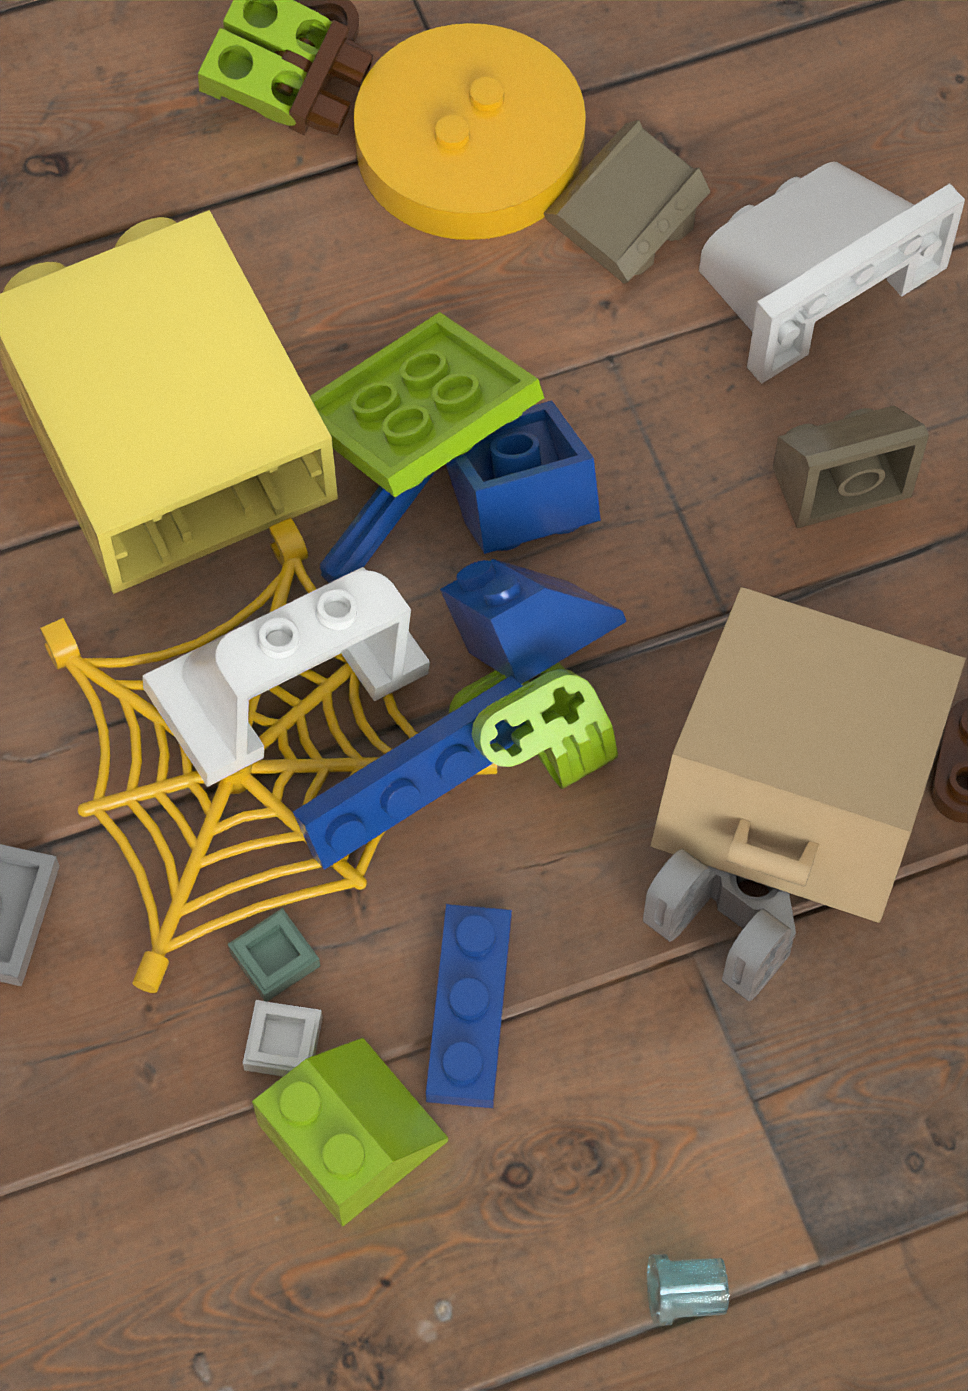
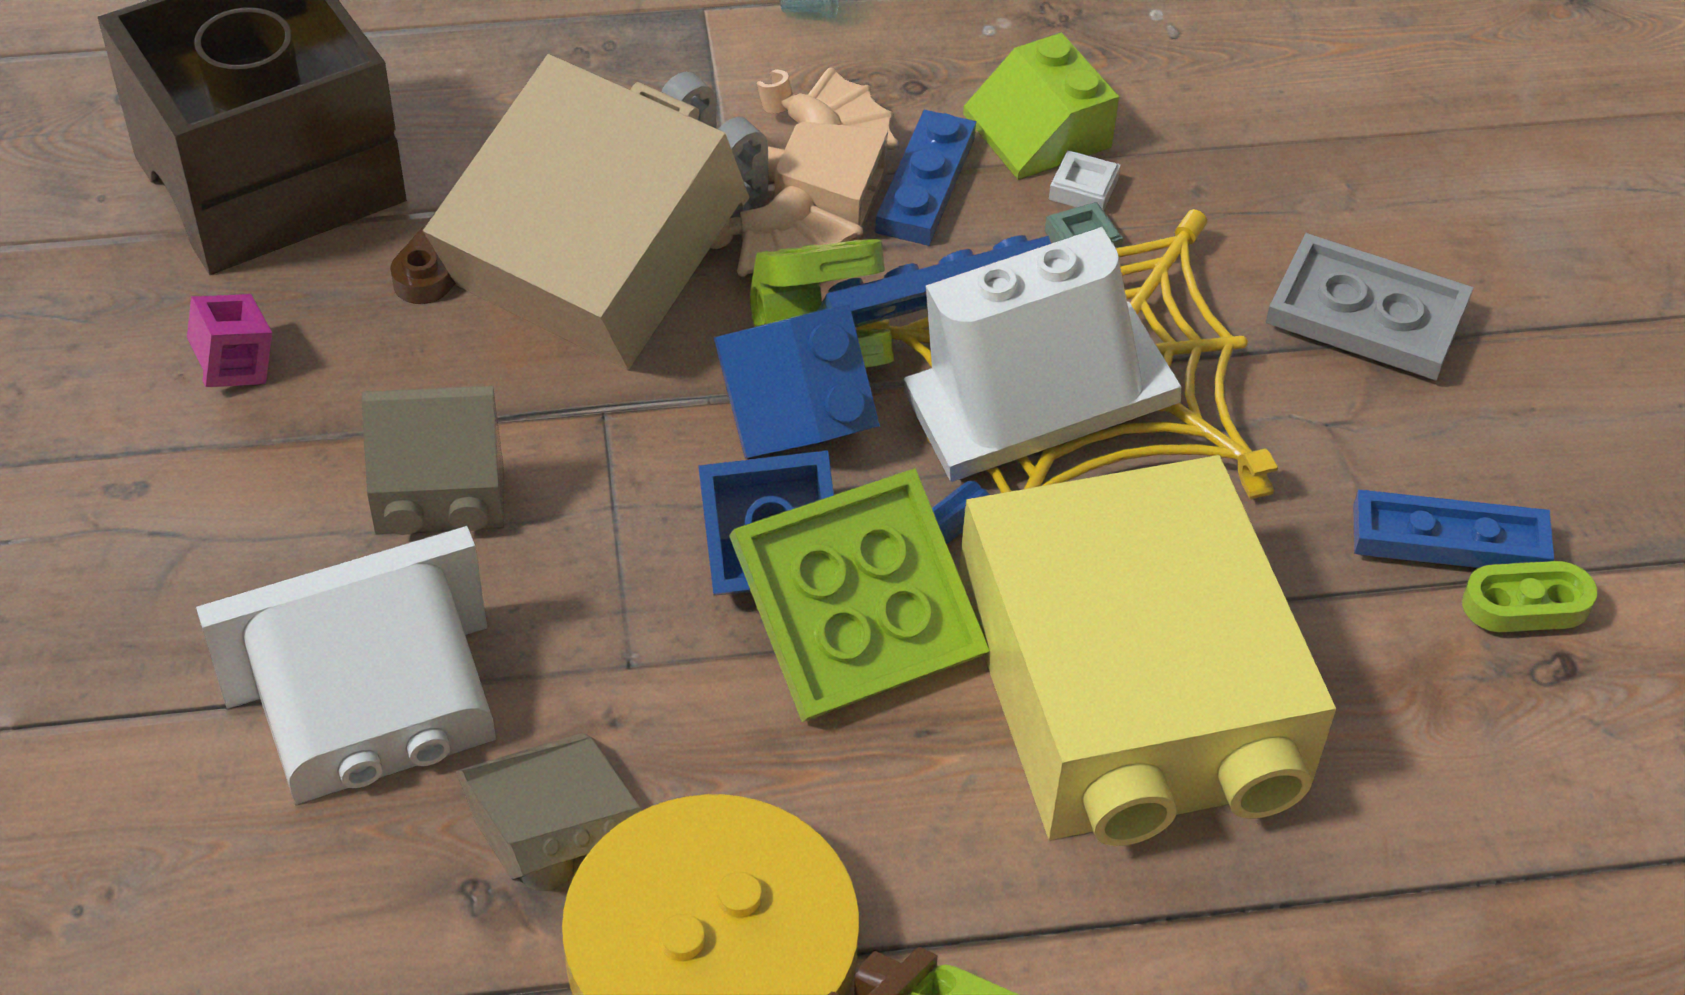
camera: 170 degrees left, 15 degrees down
(584, 957) = (825, 172): none -> light nougat torso

